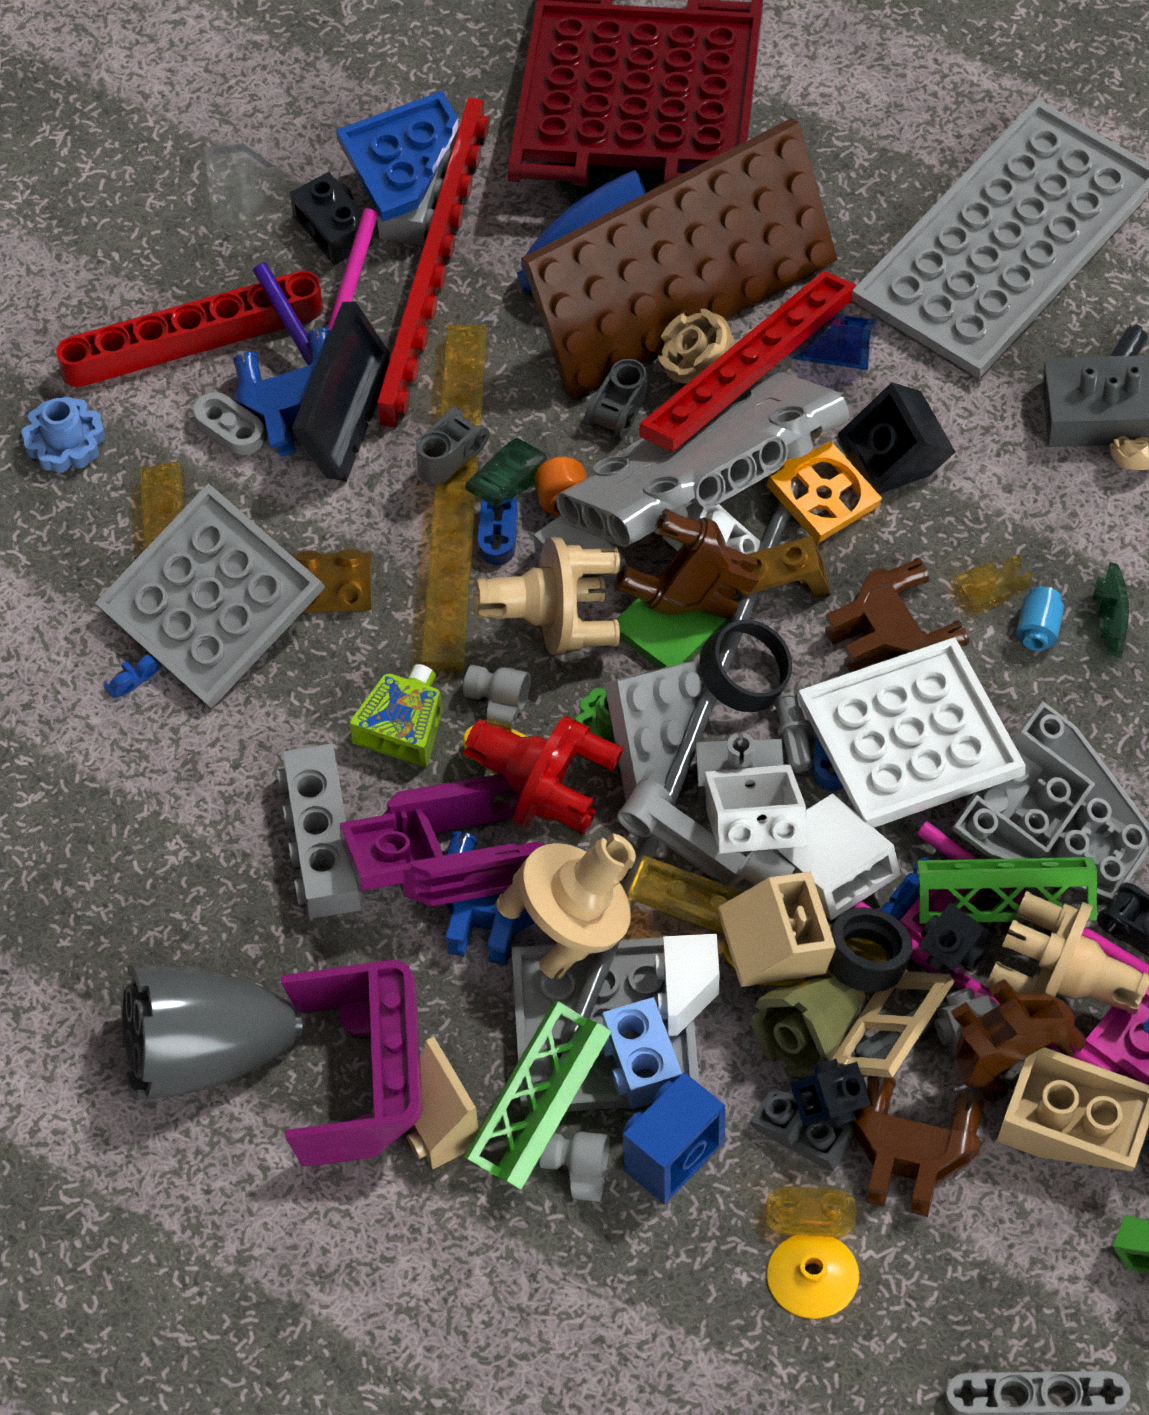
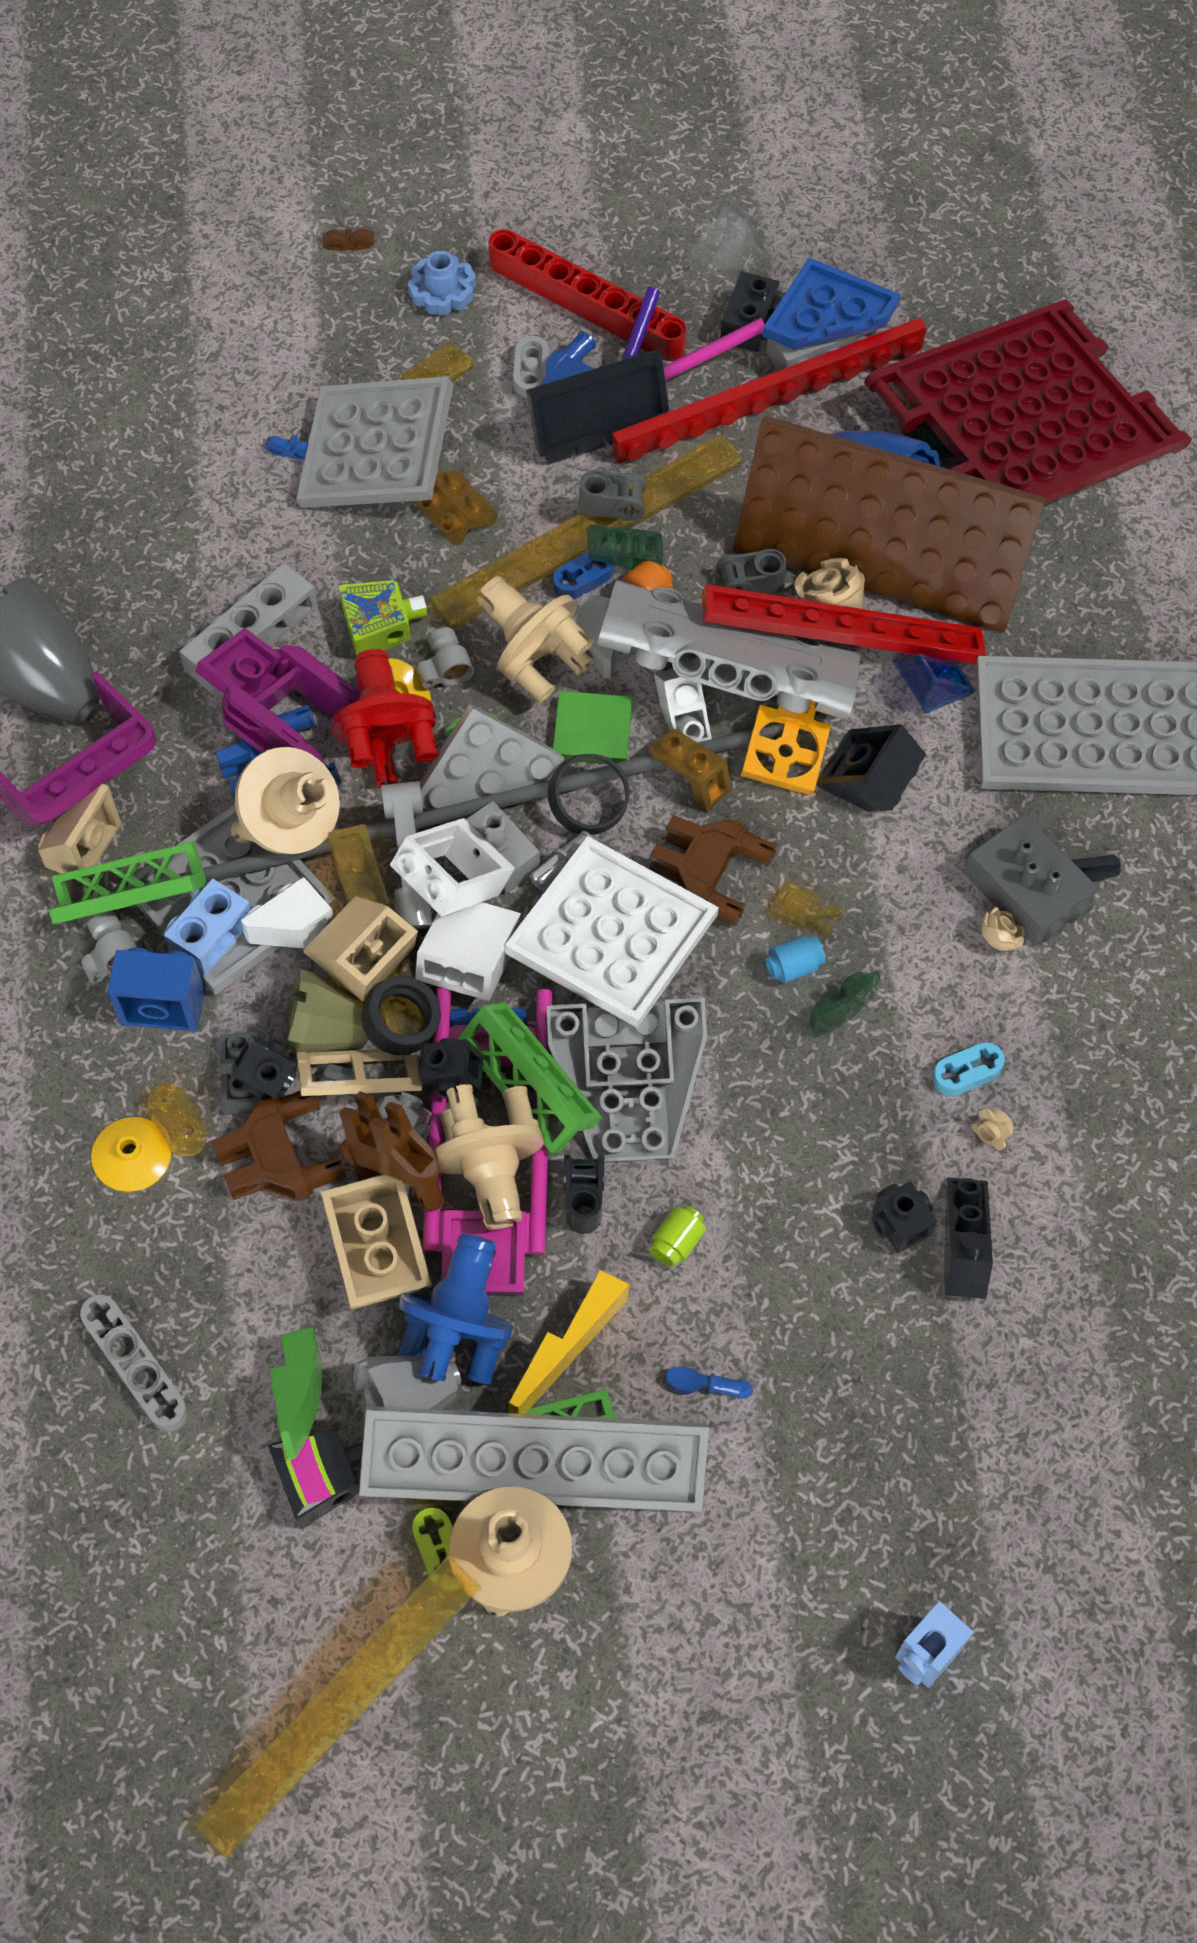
camera: 50 degrees right, 5 degrees up
(698, 577) = (631, 709): reddish brown connector -> none

